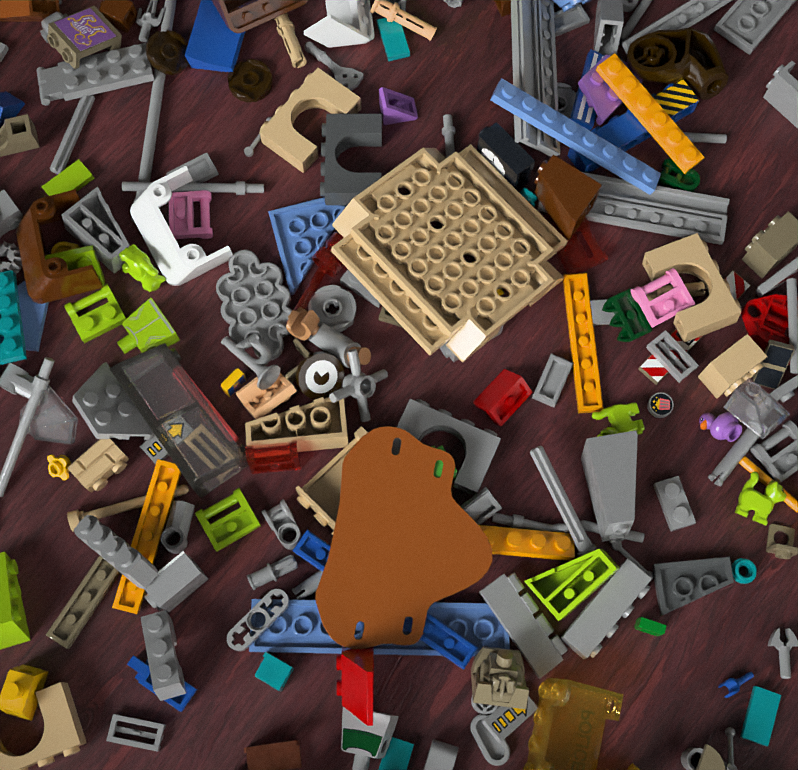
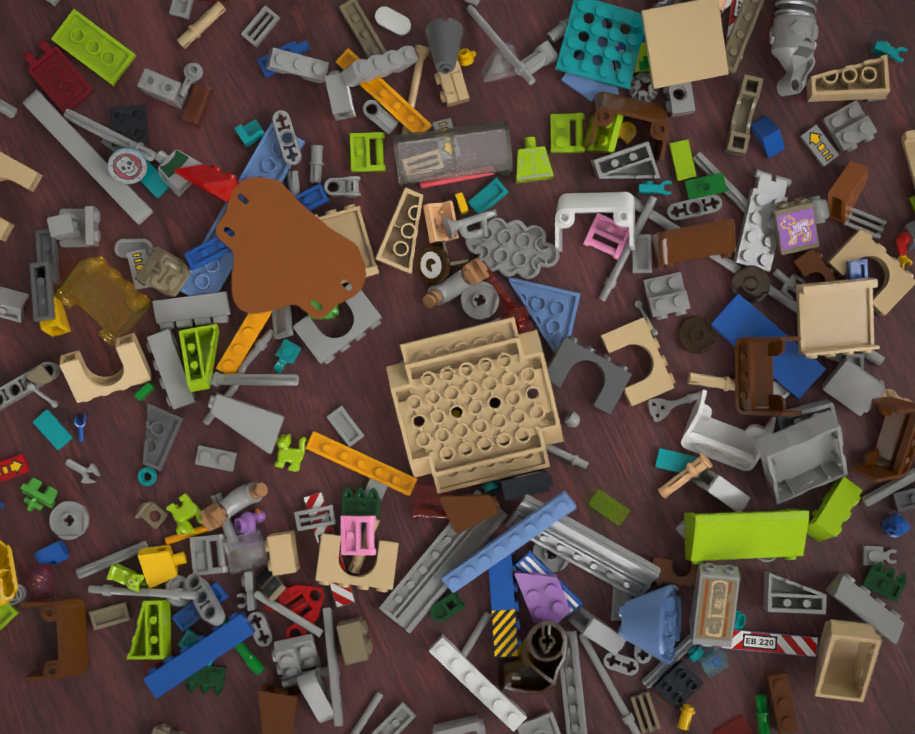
camera: 120 degrees right, 15 degrees up
(52, 492) = (444, 43): none -> dark grey cone
(55, 574) = (393, 21): none -> white tile
(84, 143) = (706, 186): none -> green plate
(109, 408) = (488, 106): light grey wing -> none
(115, 198) = (649, 188): none -> teal plate
(117, 155) = (681, 216): none -> light grey beam
(140, 268) = (581, 179): lime animal -> none
(154, 115) = (694, 243): none -> reddish brown windscreen
(211, 360) = (488, 196): none -> teal tile
(225, 126) = (666, 295): none -> light grey plate
(273, 458) = (390, 202): clear red plate -> none
(358, 385) = (410, 287): light grey bar -> none
(396, 107) = (613, 432): medium lavender slope -> none
(406, 151) = (572, 419): none -> light grey hinge
(477, 76) = (609, 507): none -> clear neon green plate
(503, 396) = (352, 384): red panel -> none
(509, 486) = (287, 353): none -> teal plate
(618, 547) = (179, 412): light grey hinge -> none
(649, 113) = (502, 611): light orange plate -> none
(660, 405) = (287, 490): tile -> none
(684, 698) = (87, 385): none -> tan arch
(707, 451) = (235, 501): none -> piece
(735, 108) = (477, 683): none -> white arch

